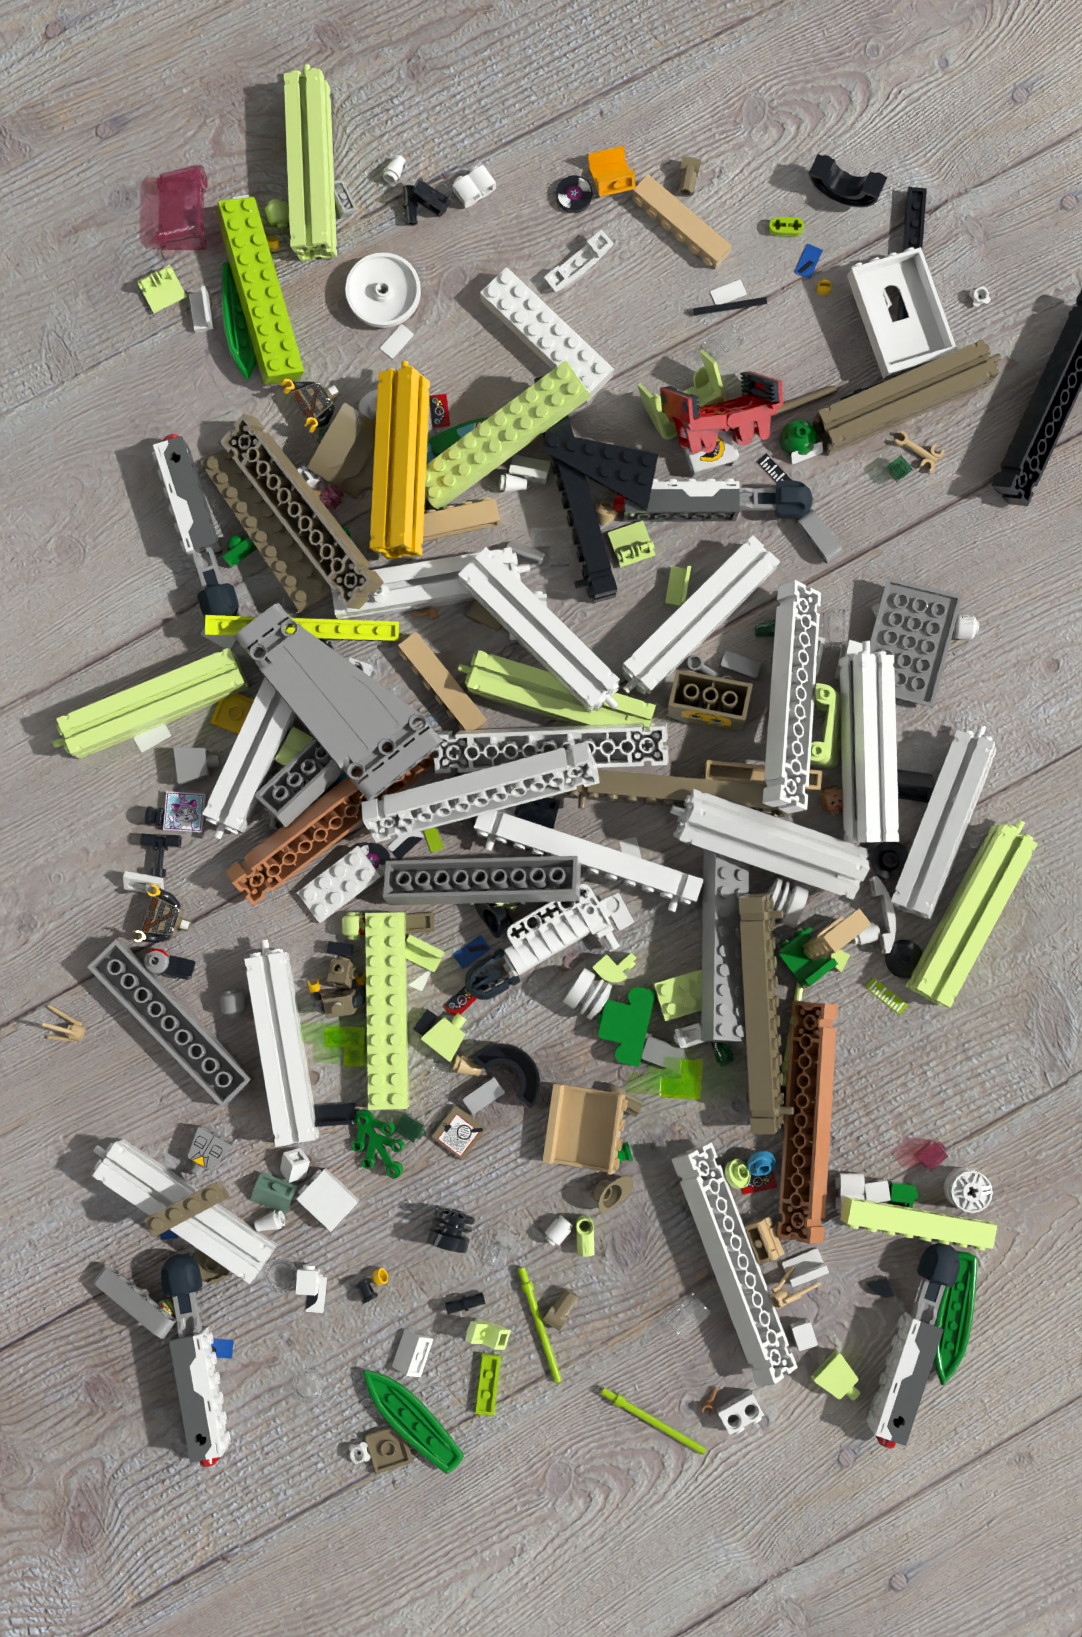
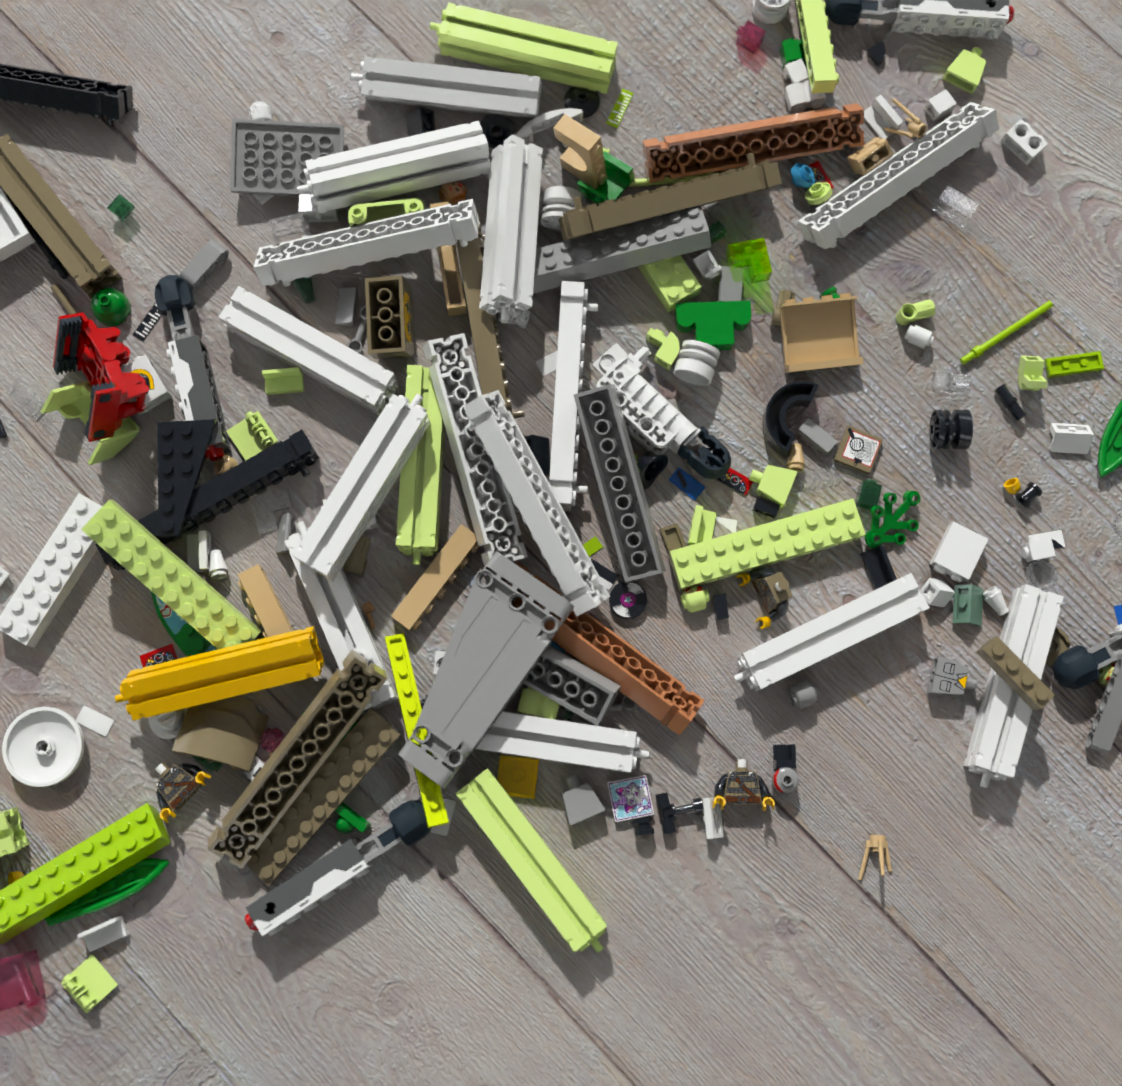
camera: 100 degrees left, 5 degrees down
(152, 737) = (564, 854): white sticker -> none
(170, 1023) = (841, 749): light grey brick -> none
(339, 884) = (659, 624): white plate -> none
(341, 973) = (748, 592): dark tan brick -> none
(353, 1041) = (804, 569): clear neon green brick -> none
(558, 1313) = (991, 317): dark tan piece -> none
(611, 1193) = (869, 299): dark tan piece -> none
(619, 1401) = (1049, 246): lime bar -> none
(709, 1403) = (1025, 171): medium nougat hand -> none
(818, 449) = (130, 303): white sticker -> none
(929, 457) = (102, 184): tan bar -> none

